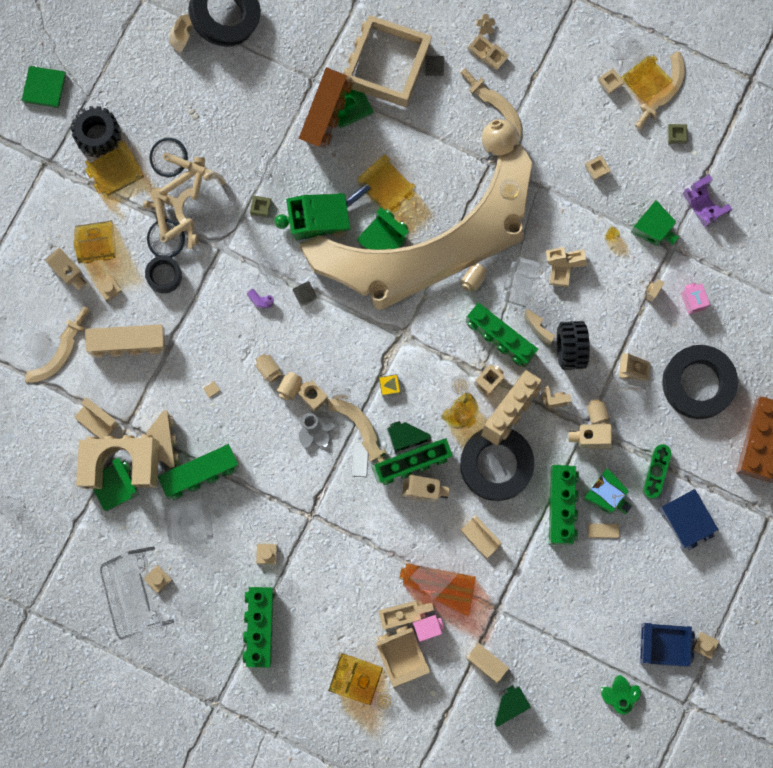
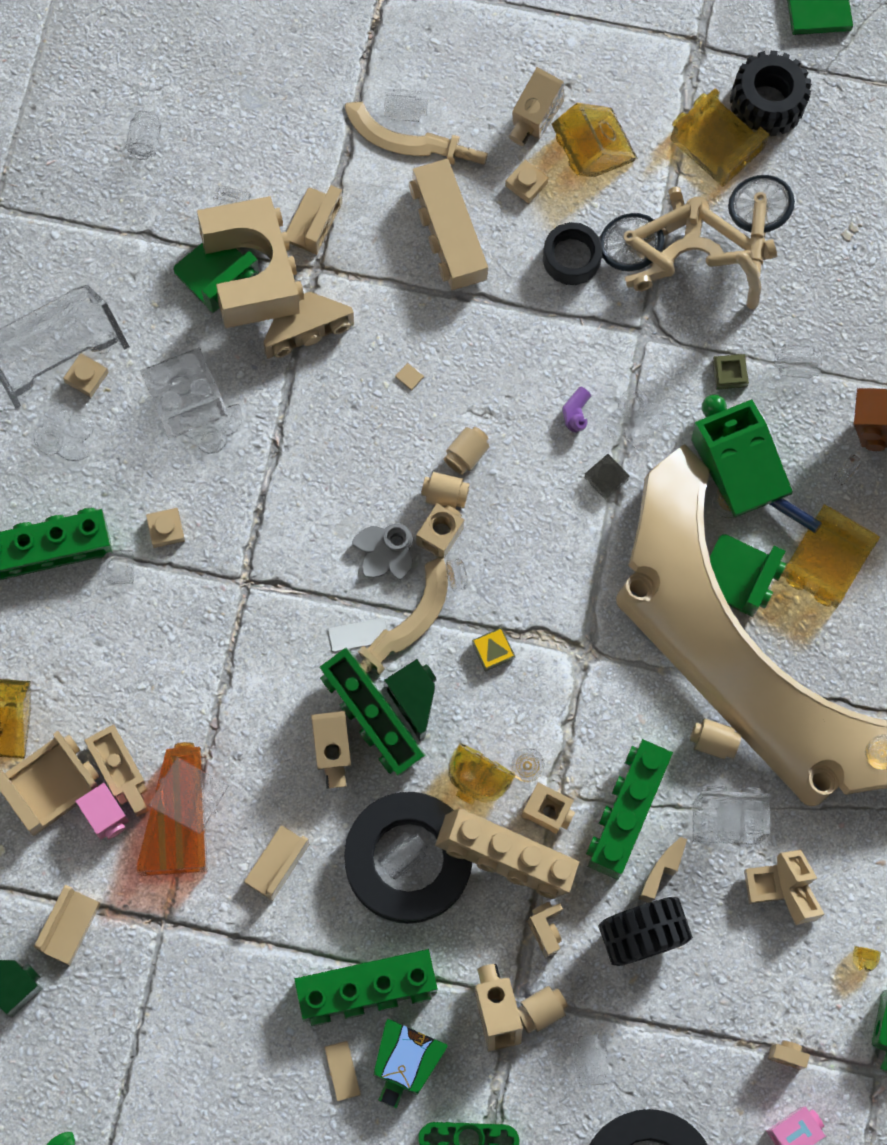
camera: 70 degrees right, 5 degrees down
(198, 472) = (268, 388): green brick -> none
(634, 368) = (640, 1053): tan slope -> none

